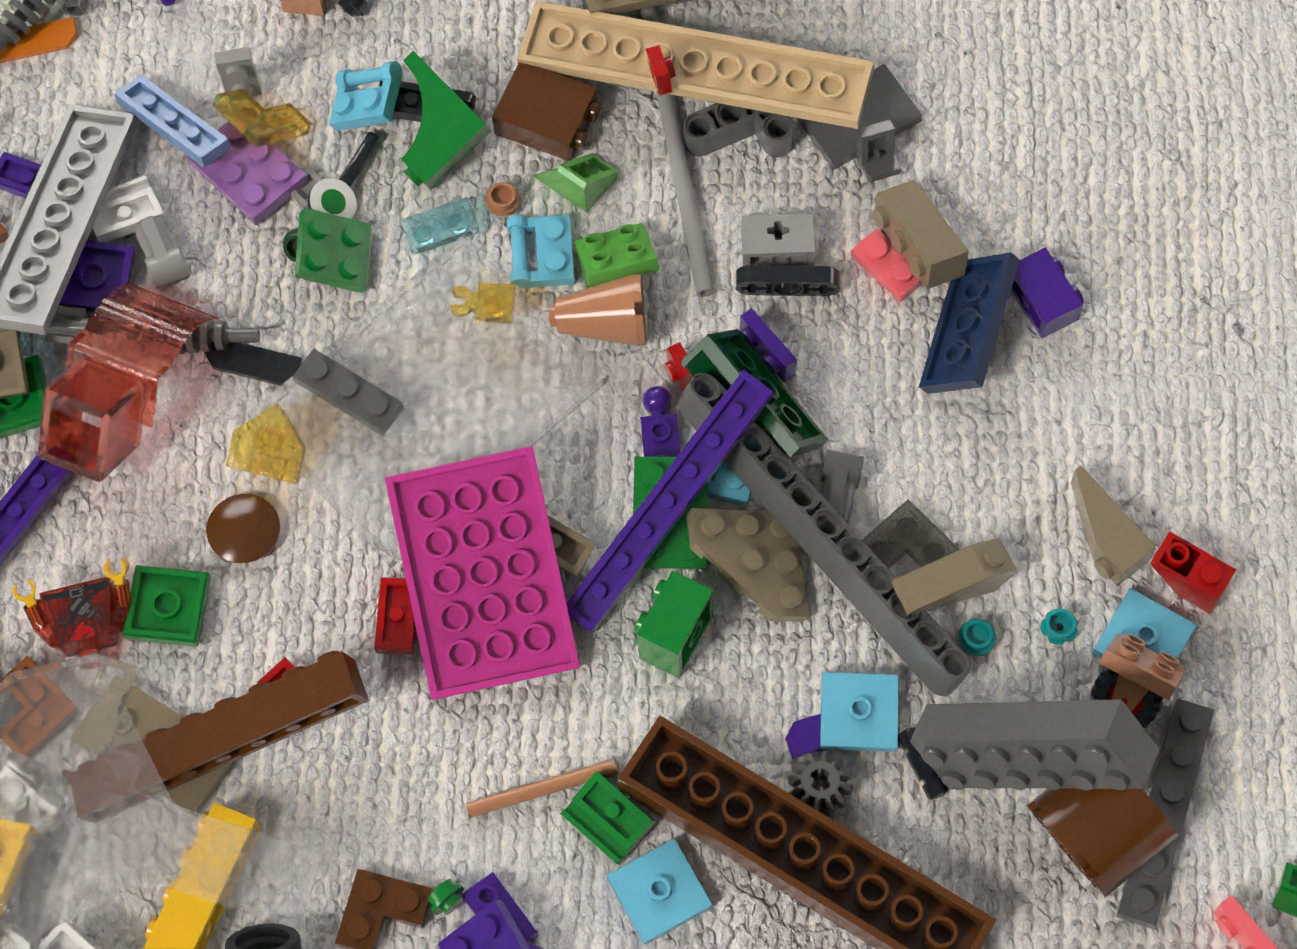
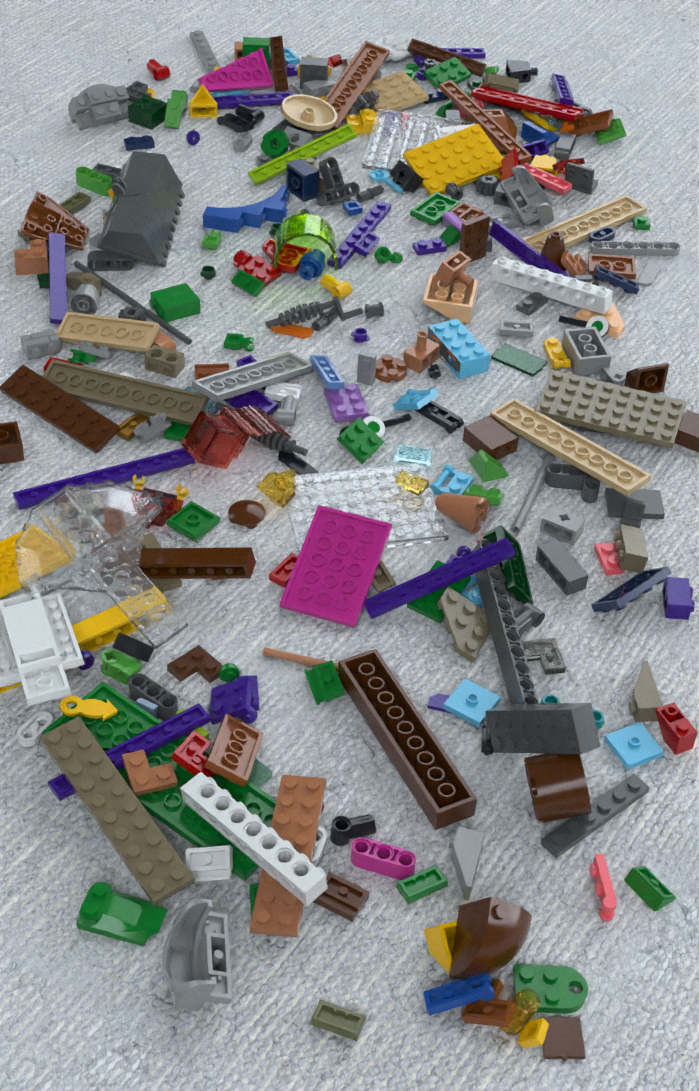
camera: 25 degrees right, 25 degrees down
(260, 124) = (362, 387): clear yellow plate -> none
(266, 22) = (390, 369): none -> dark orange plate
(348, 392) = (328, 486): dark grey plate -> none
(446, 128) = (439, 423): green arch -> none
(502, 199) = (448, 458): nougat plate -> none
(659, 891) = (326, 721): medium azure plate -> none
(661, 69) = (550, 435): red plate -> none
(674, 623) = (409, 625): green brick -> none
(768, 345) = (530, 557): dark purple plate -> none
(787, 280) = (541, 532): black beam -> none
(830, 335) = (561, 567): none -> brick
(830, 772) = (435, 716): dark grey gear -> none
(955, 577) = (556, 671): dark tan slope -> none
(1137, 677) = (614, 750): nougat plate -> none

